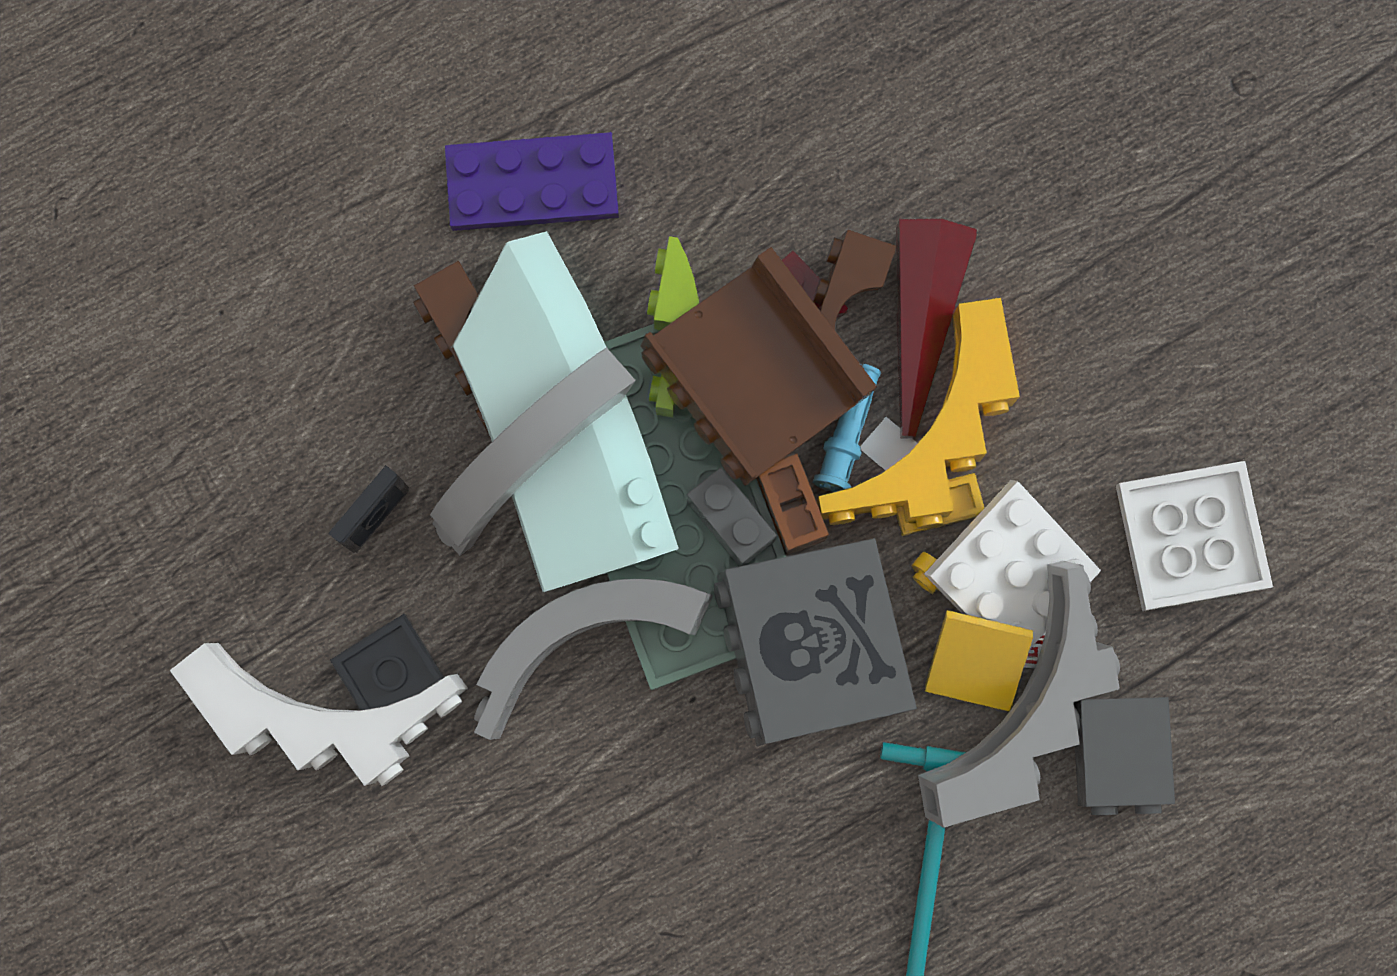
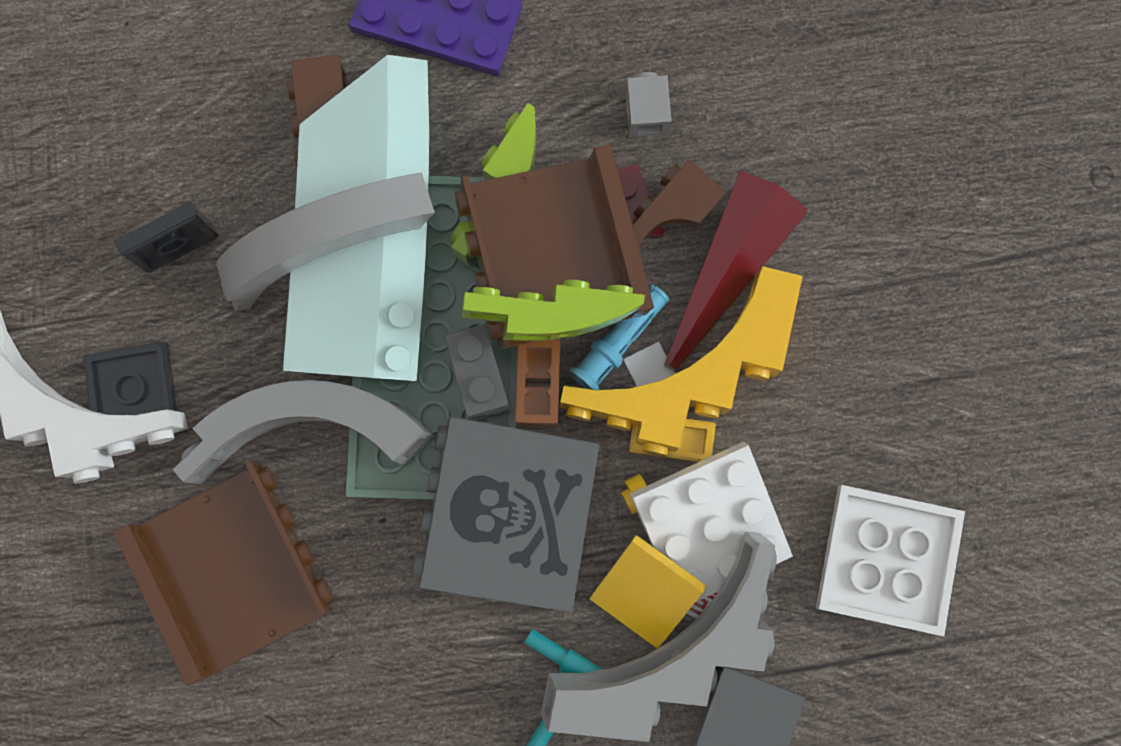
camera: 25 degrees right, 0 degrees up
(565, 810) = (225, 573): none -> reddish brown panel
(780, 188) = (648, 105): none -> light grey brick
(801, 425) = (571, 311): none -> lime slope

